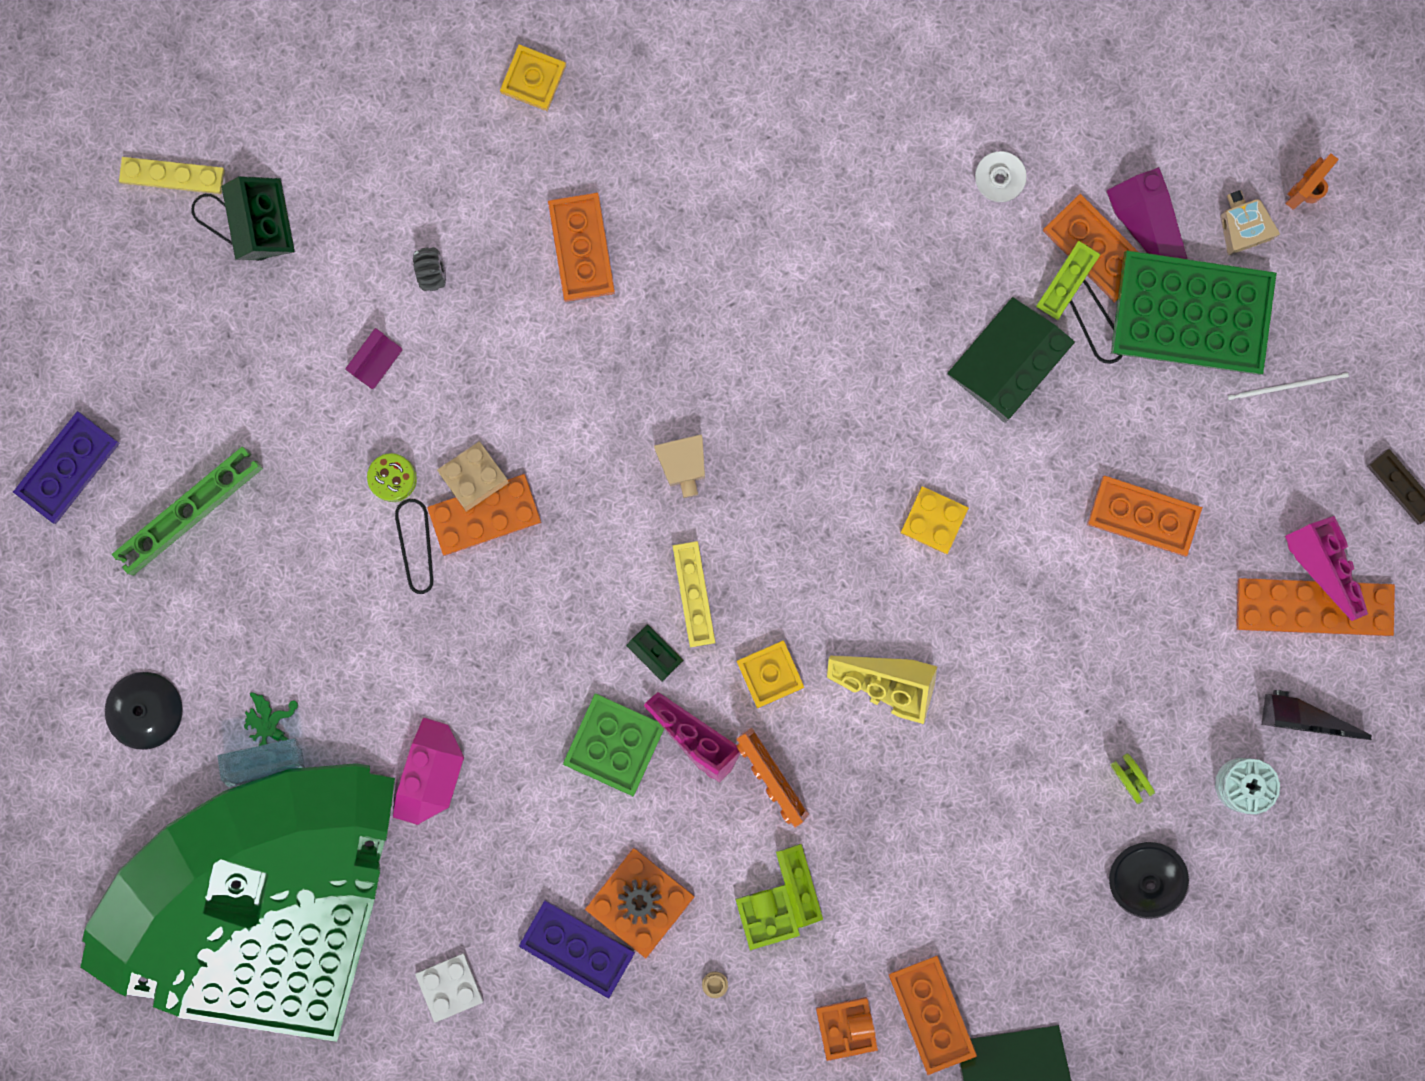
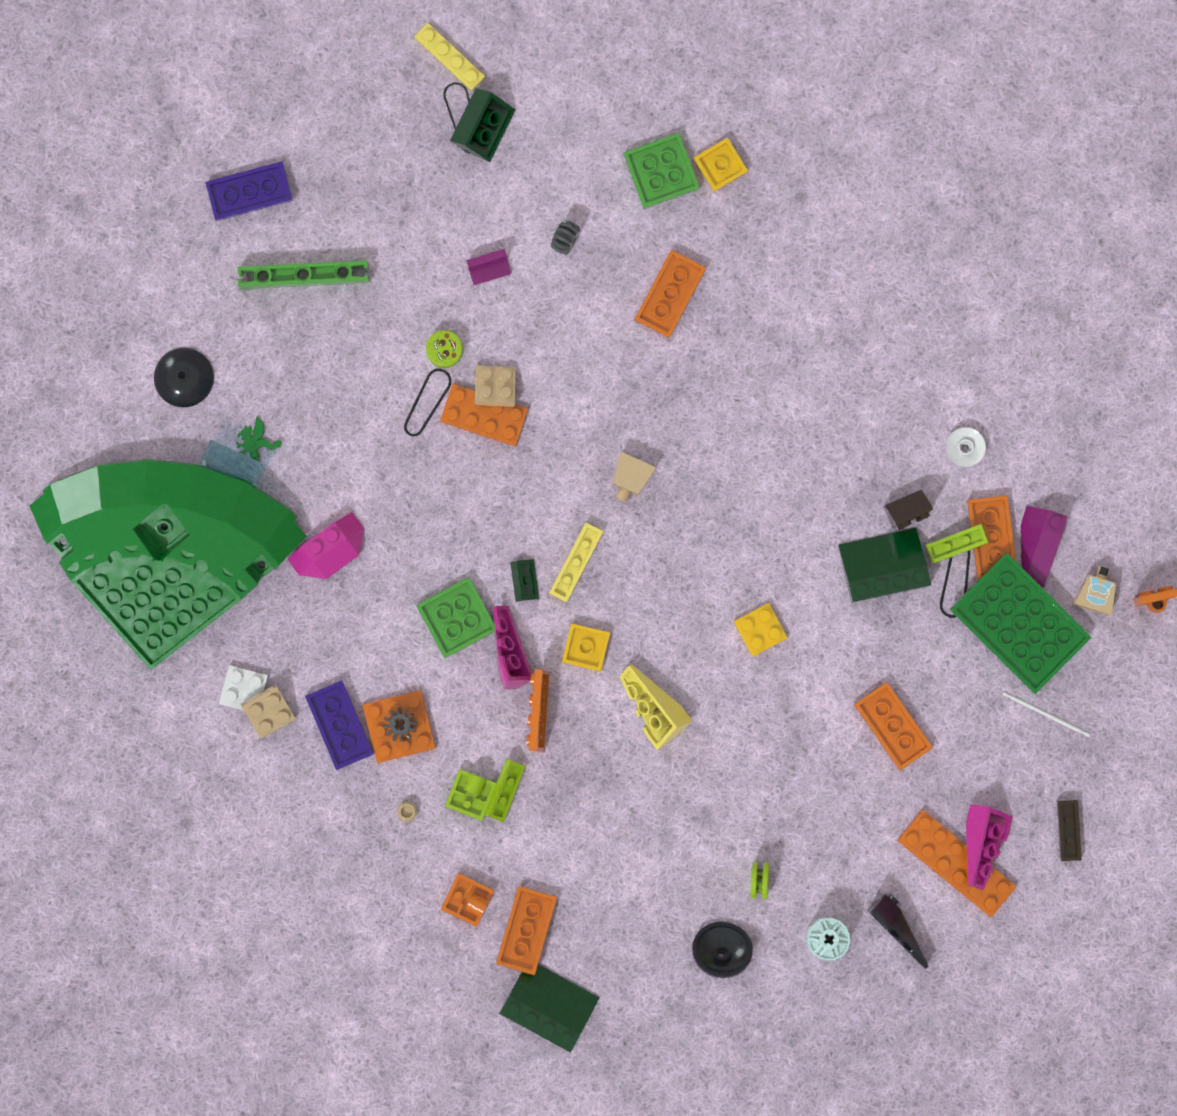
camera: 30 degrees right, 0 degrees up
(477, 128) = (661, 170): none -> bright green plate
(492, 991) = (268, 711): none -> tan plate
(989, 286) = (907, 509): none -> dark brown slope

